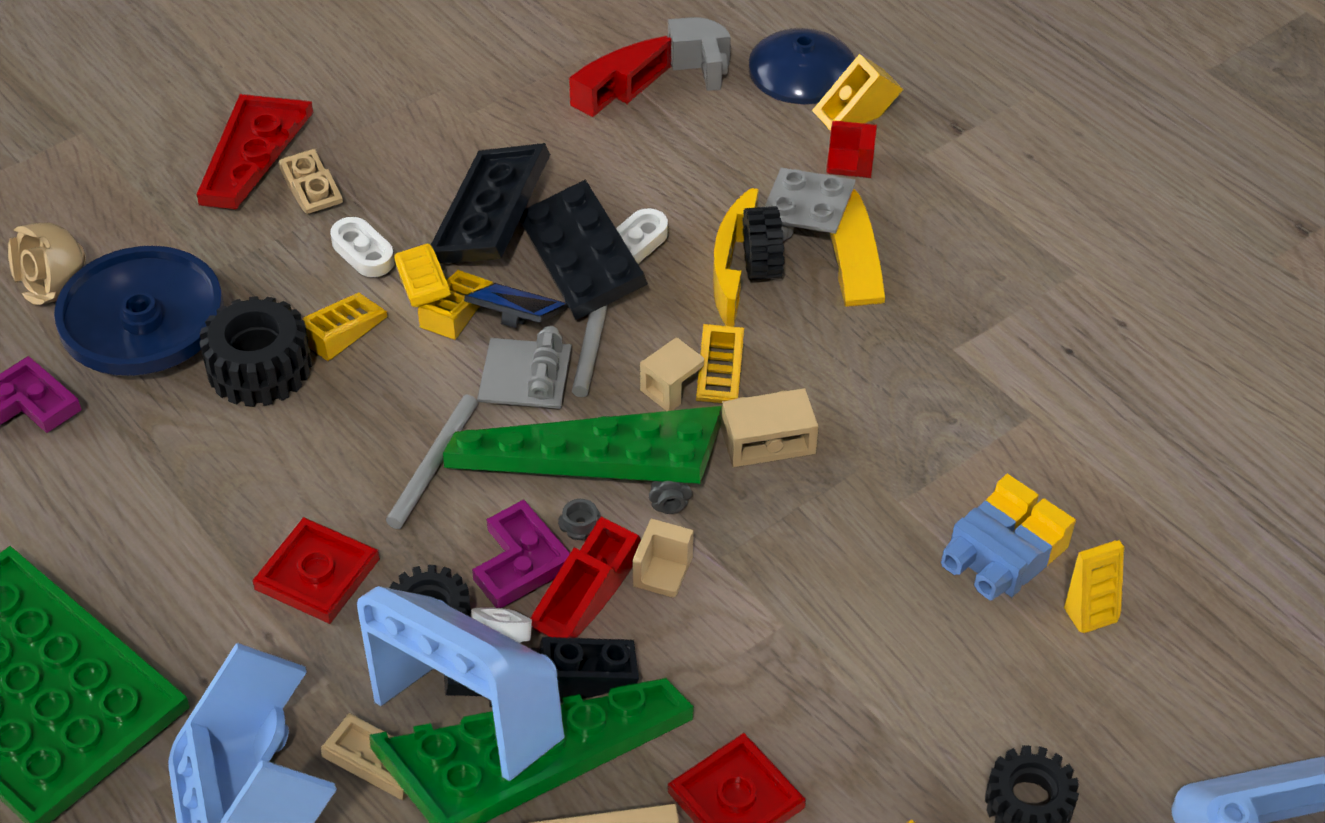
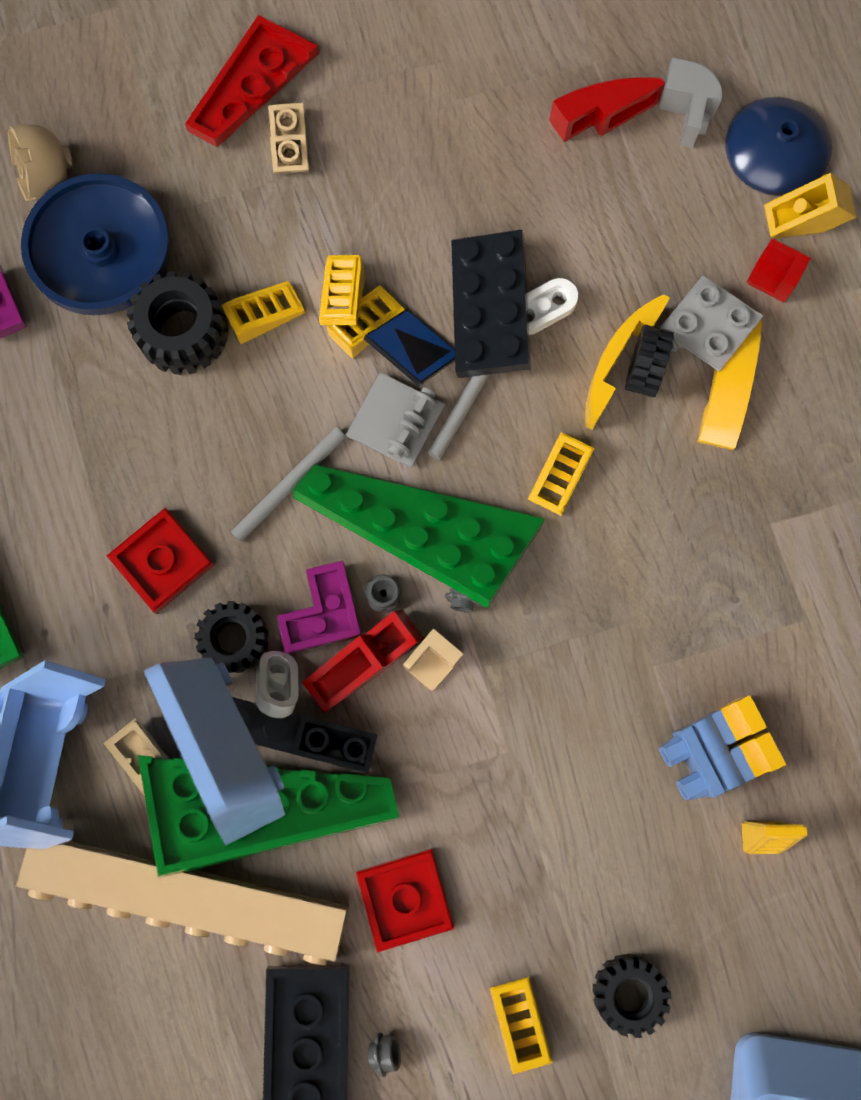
camera: 20 degrees right, 30 degrees up
(362, 247) = (307, 234): white plate -> none
(489, 203) = (430, 224): black plate -> none
(666, 370) = (514, 471): tan panel -> none
(769, 427) = (574, 557): tan brick -> none

